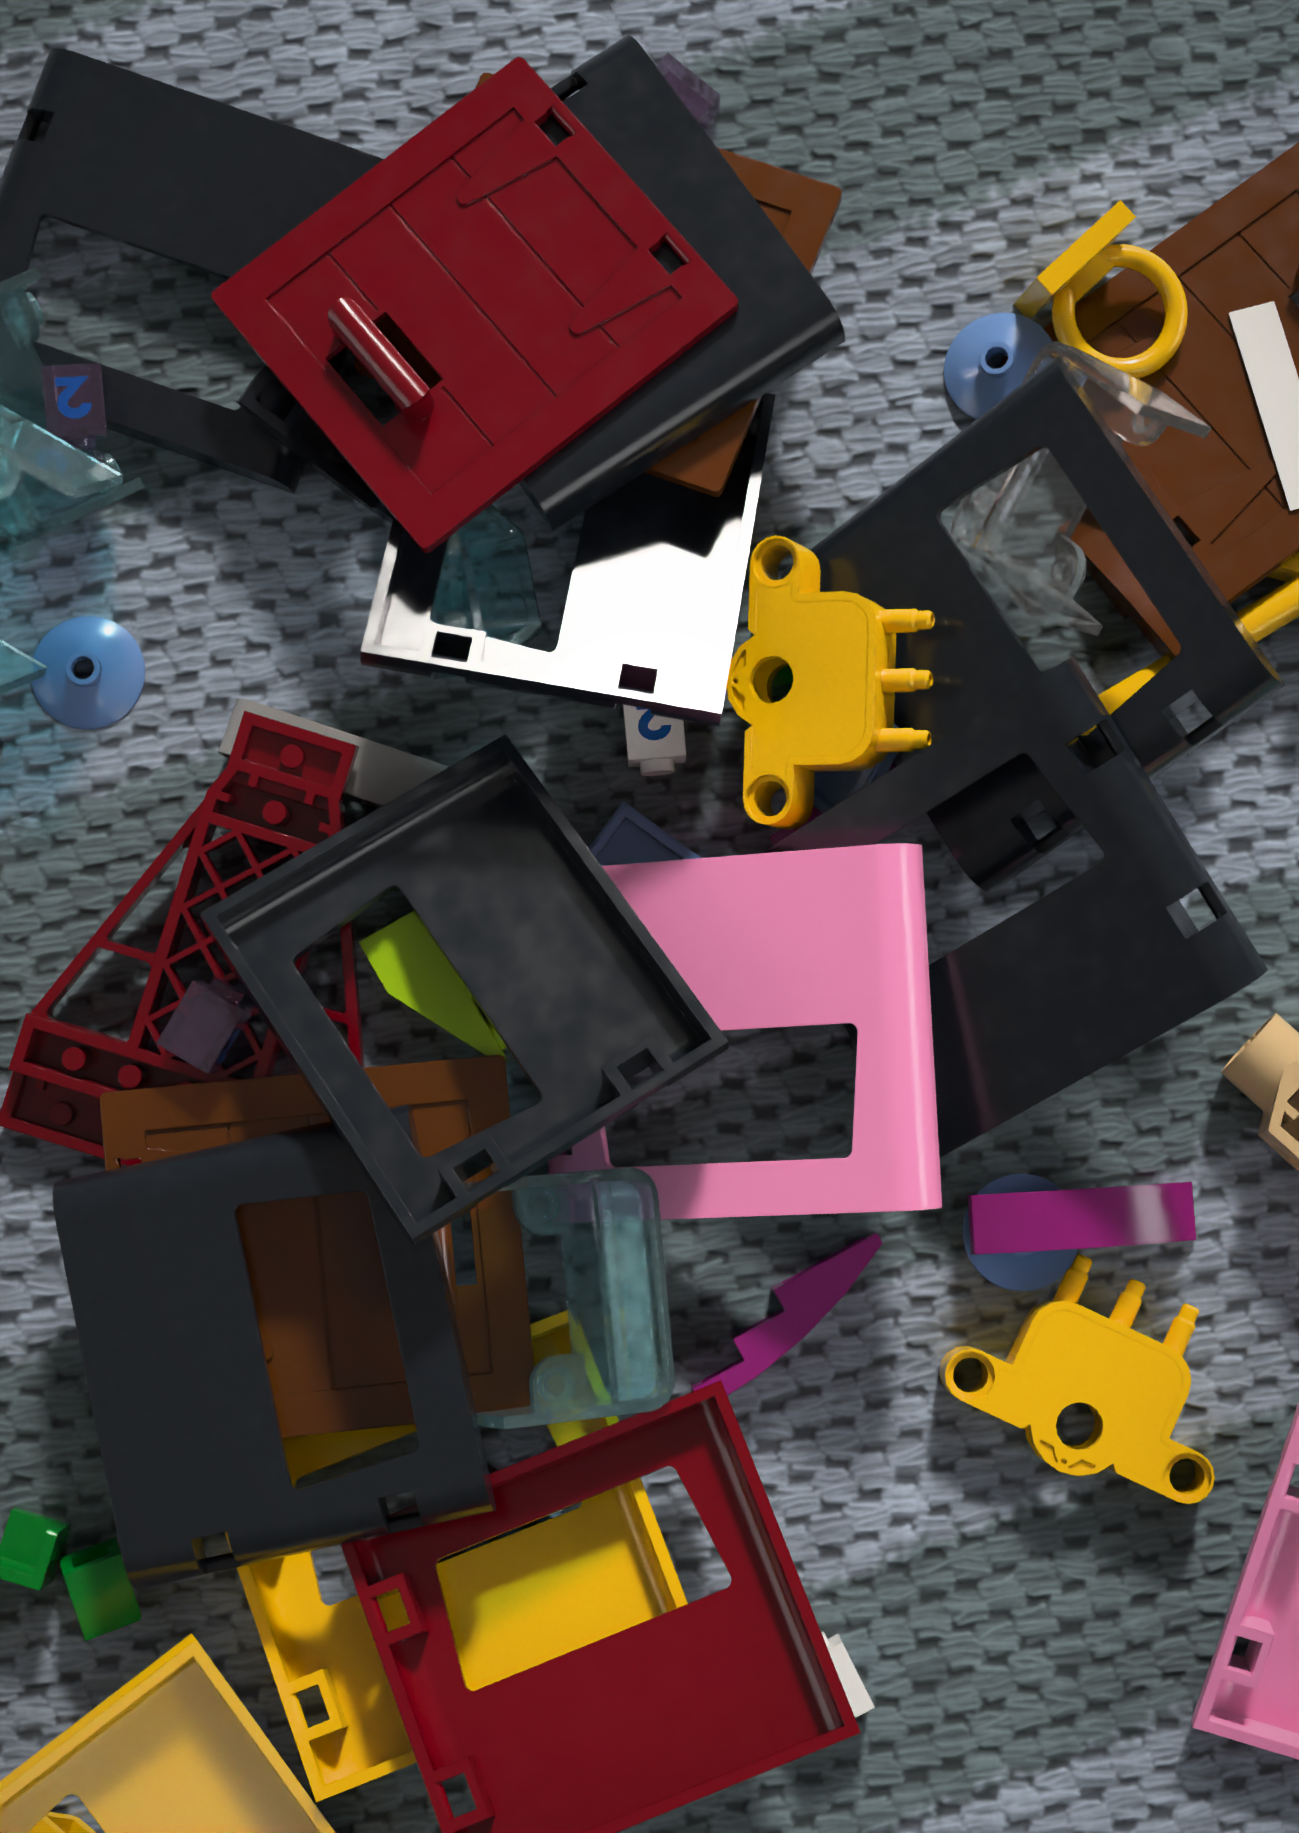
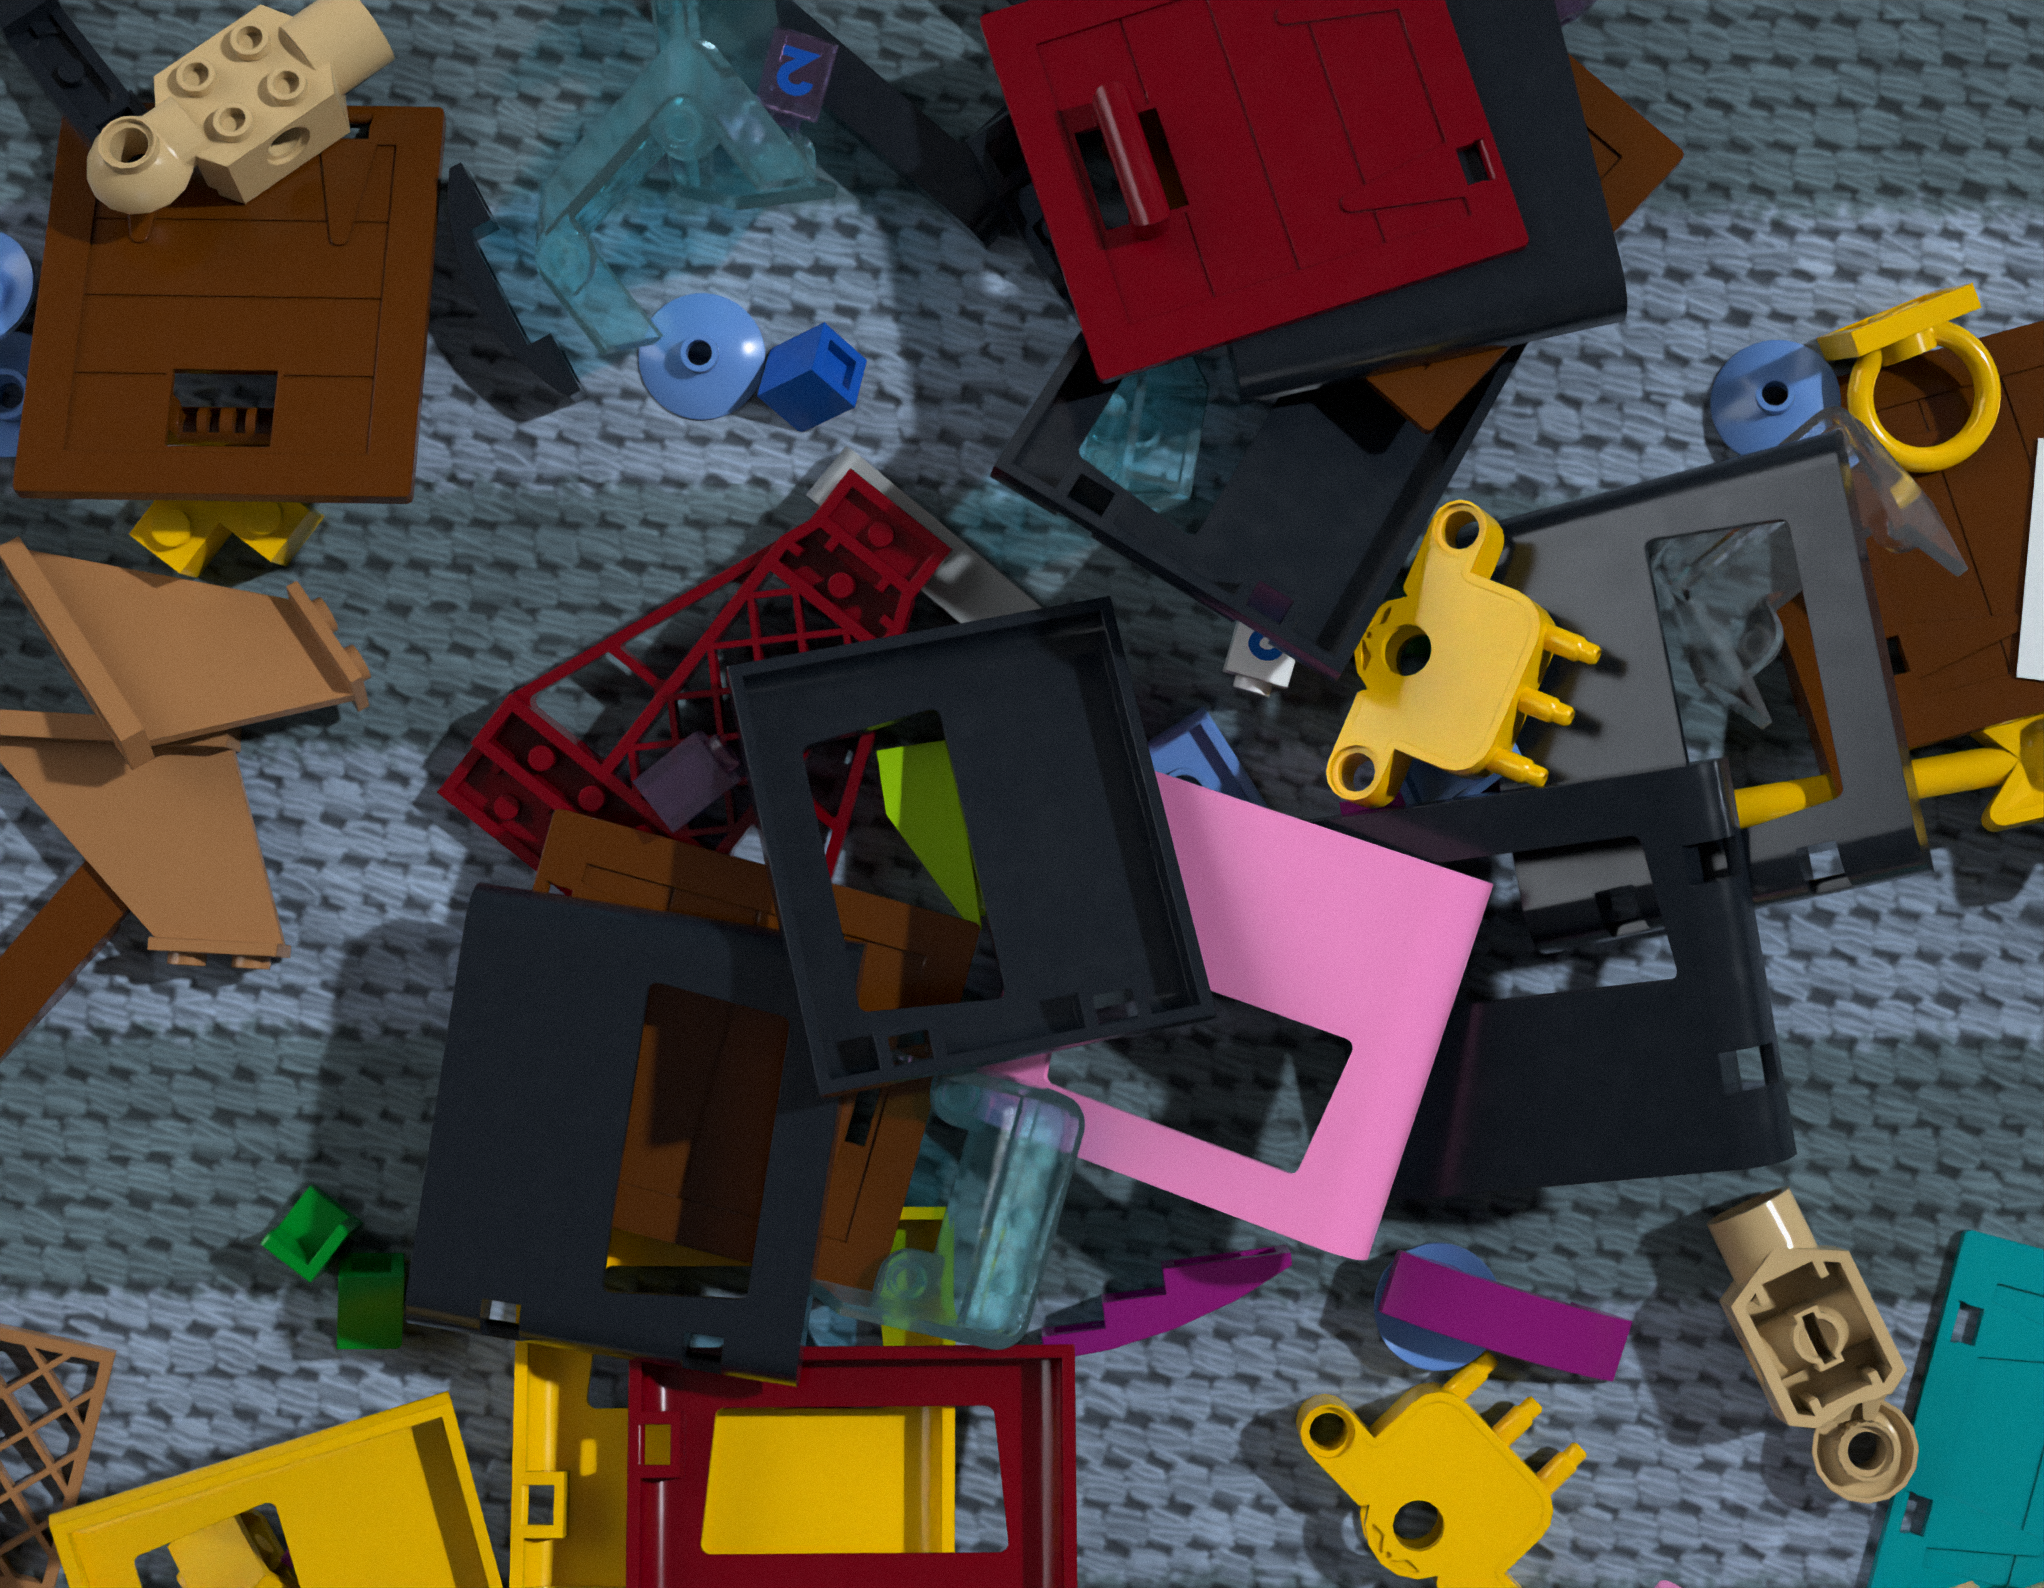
camera: 25 degrees right, 5 degrees up
(187, 653) = (812, 377): none -> blue panel

